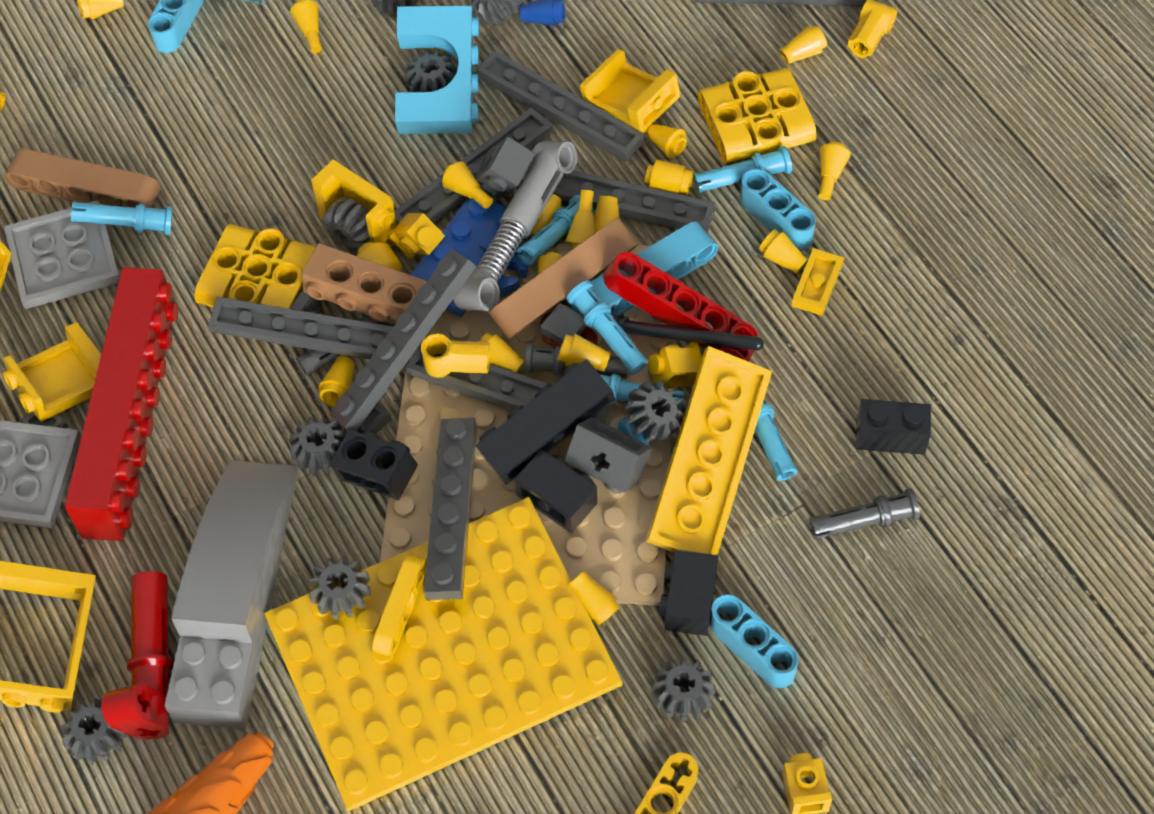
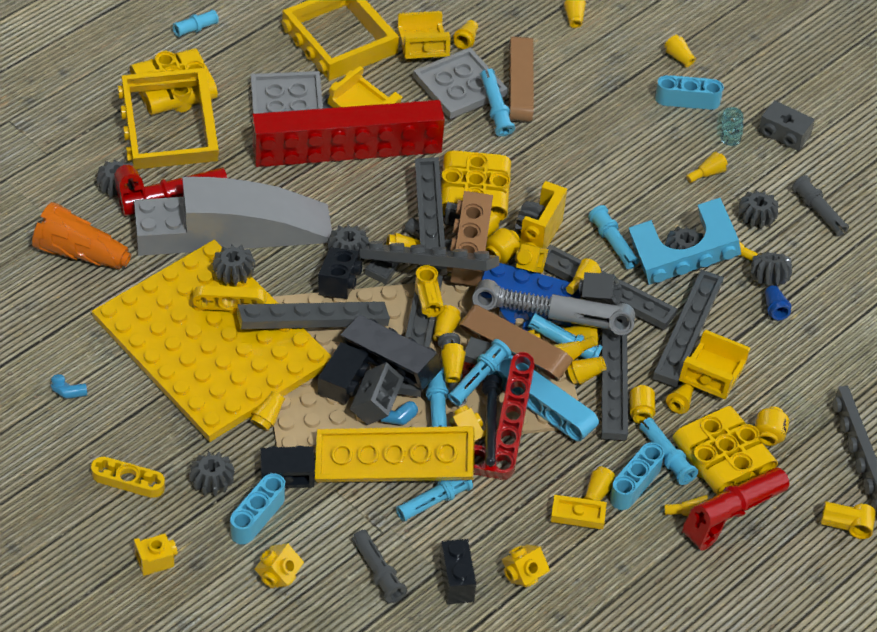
camera: 70 degrees right, 10 degrees down
(379, 148) = (609, 229): none -> medium azure pin
(656, 422) = (424, 403): dark grey gear -> none
(729, 60) = (772, 425): none -> yellow head
(804, 45) = (812, 475): yellow cone -> none
(858, 630) = (279, 566): none -> yellow brick
(867, 147) = (709, 517): none -> red piece
(896, 351) = (525, 565): none -> yellow brick

